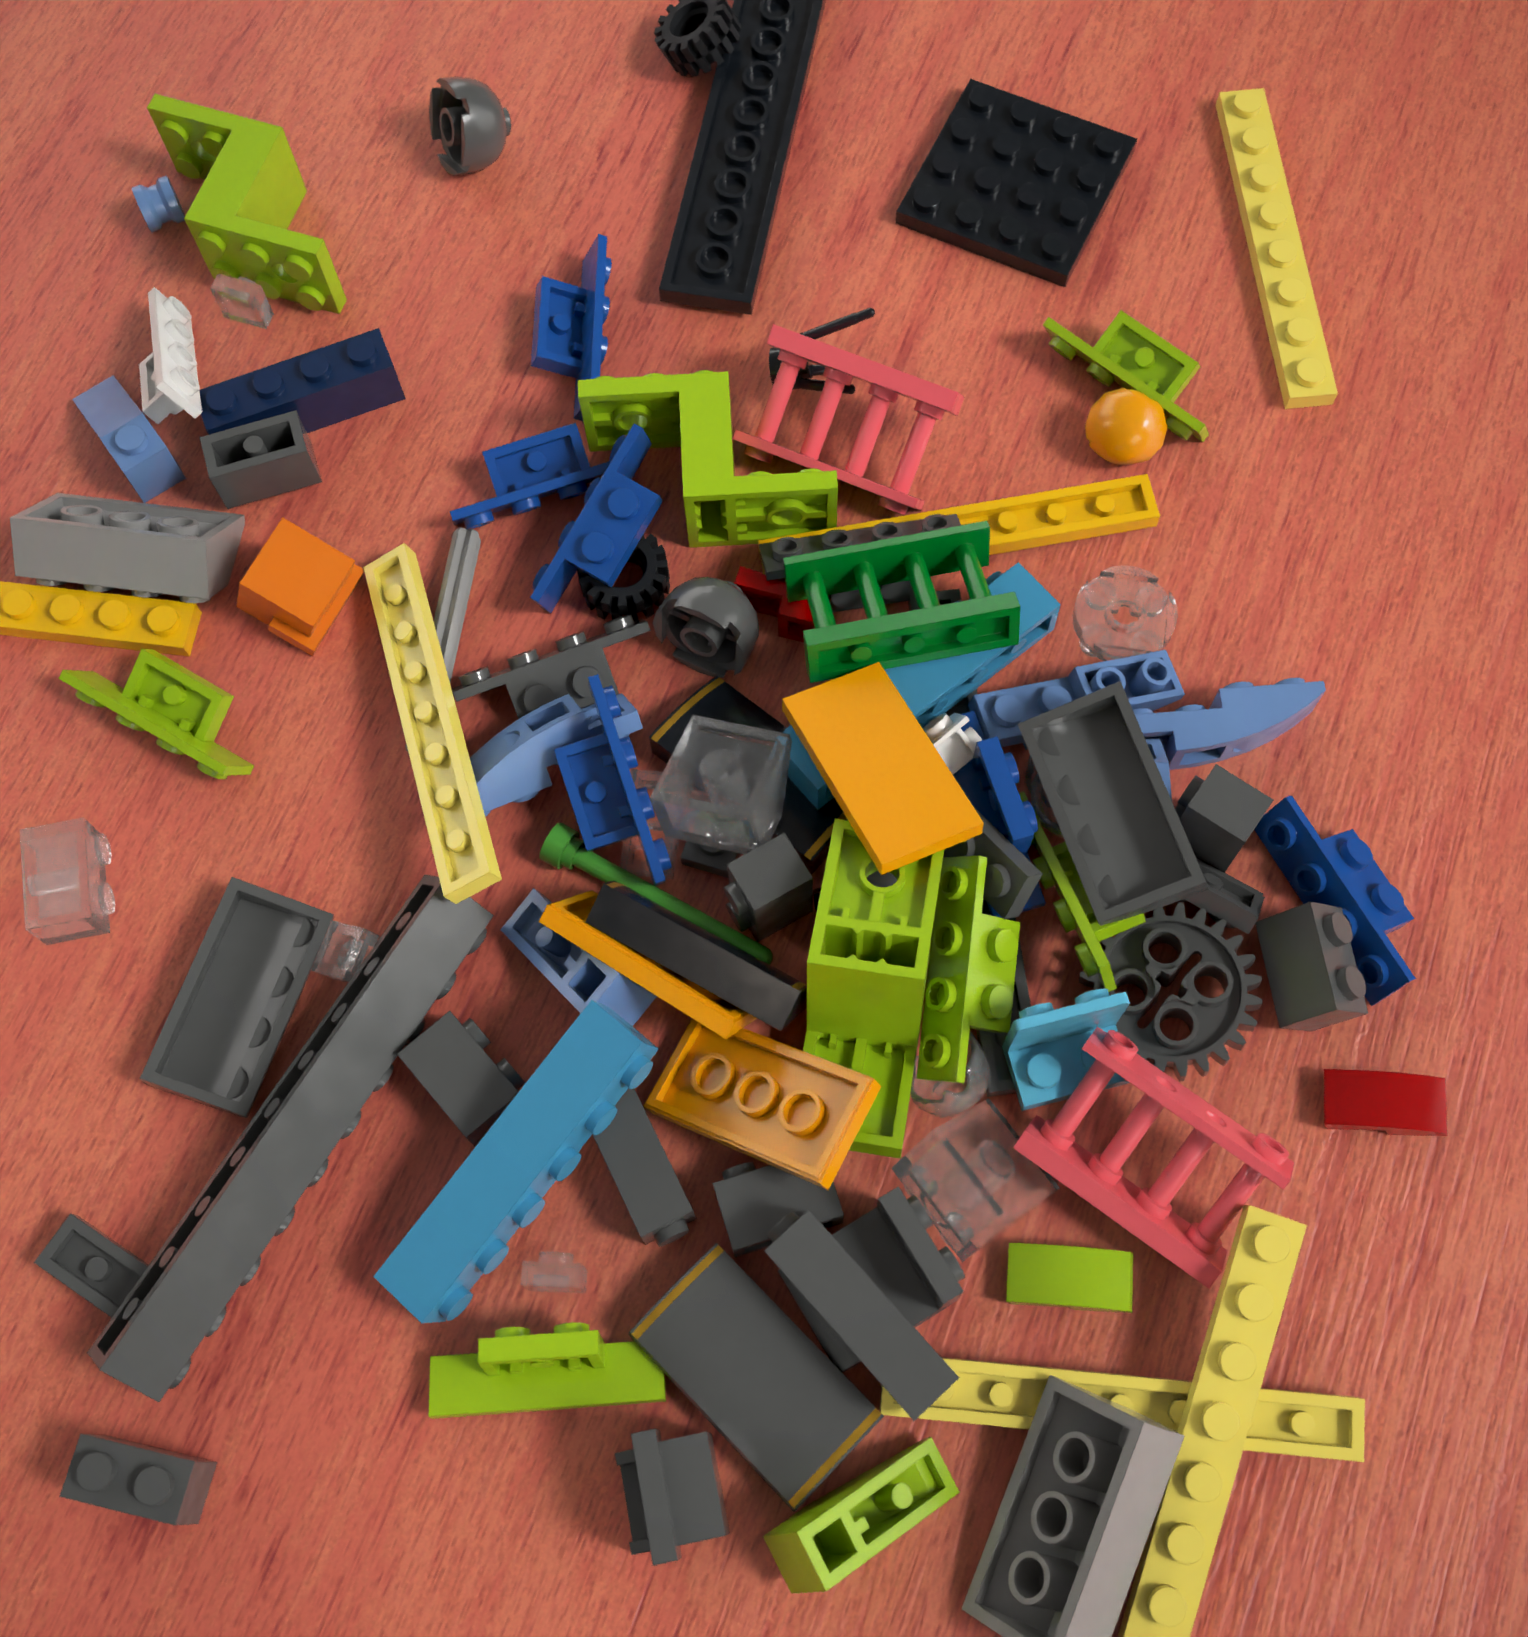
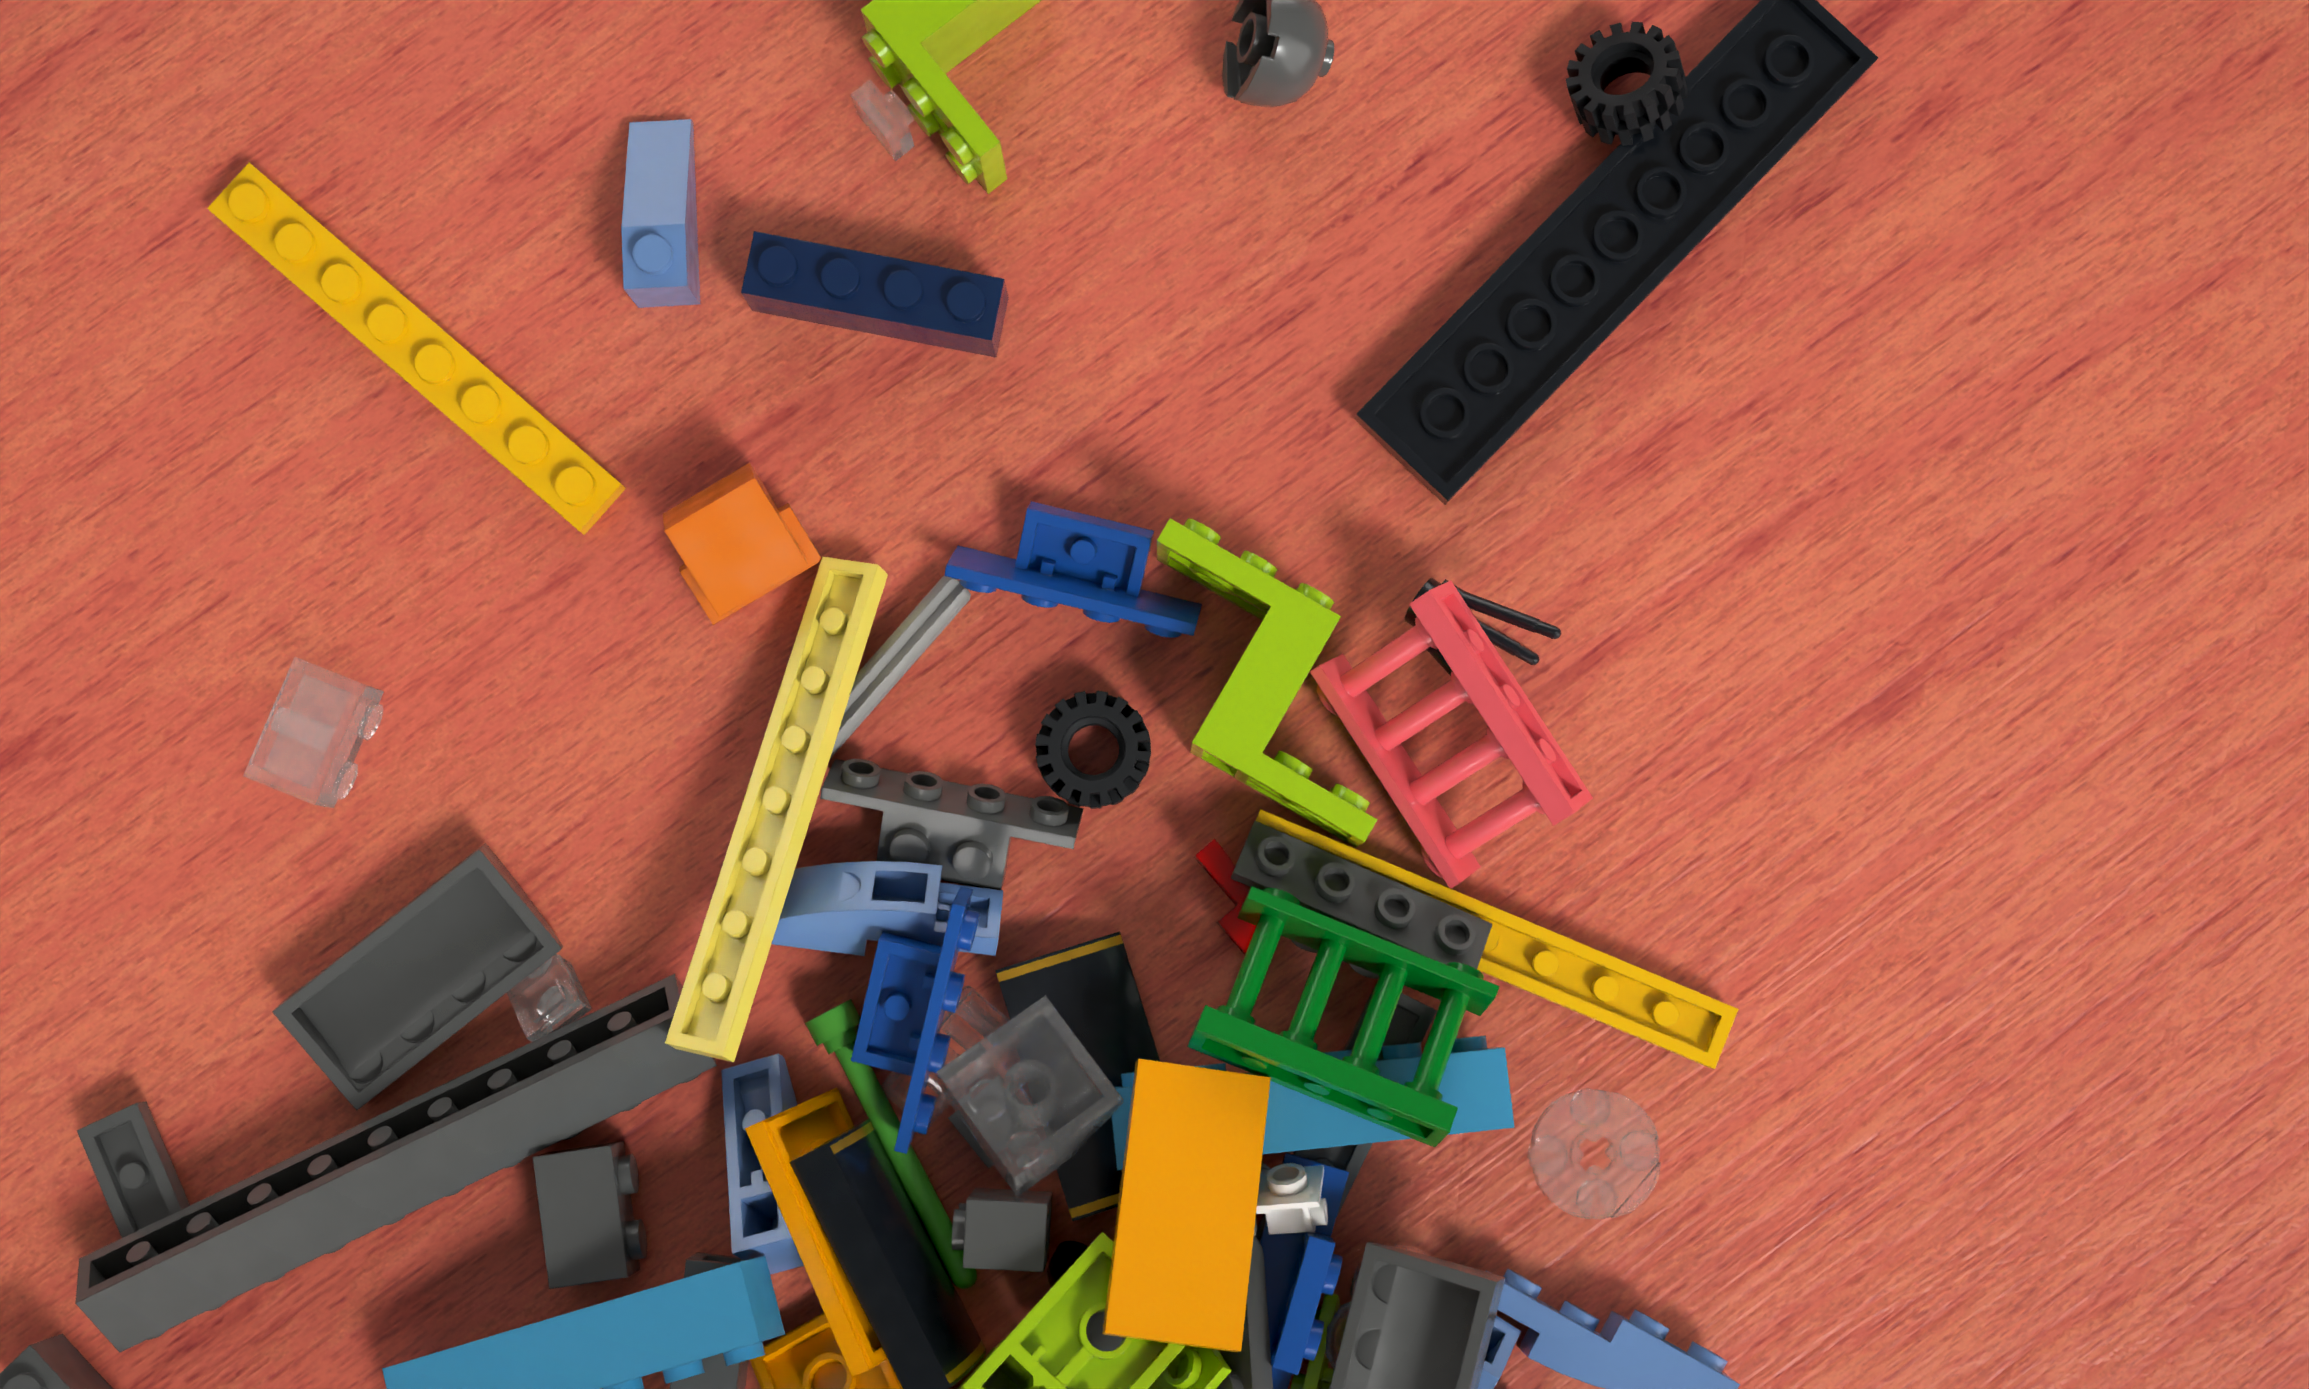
camera: 30 degrees right, 15 degrees up
(126, 546) = (589, 364): light grey slope -> none
(170, 371) = (751, 168): white bracket -> none
(170, 705) = (522, 597): lime bracket -> none
(260, 459) = (783, 357): dark grey brick -> none
(571, 321) = (1228, 398): blue bracket -> none
(606, 528) = (1102, 704): blue bracket -> none
(708, 625) = (1143, 882): dark grey cylinder -> none
(1016, 182) = (1869, 525): black plate -> none
(1125, 427) = (1754, 937): light orange hair -> none
(1137, 362) = (1828, 866): lime bracket -> none
(1146, 679) = (1471, 1222): medium blue slope -> none
(1275, 250) = (2105, 805): light yellow plate -> none

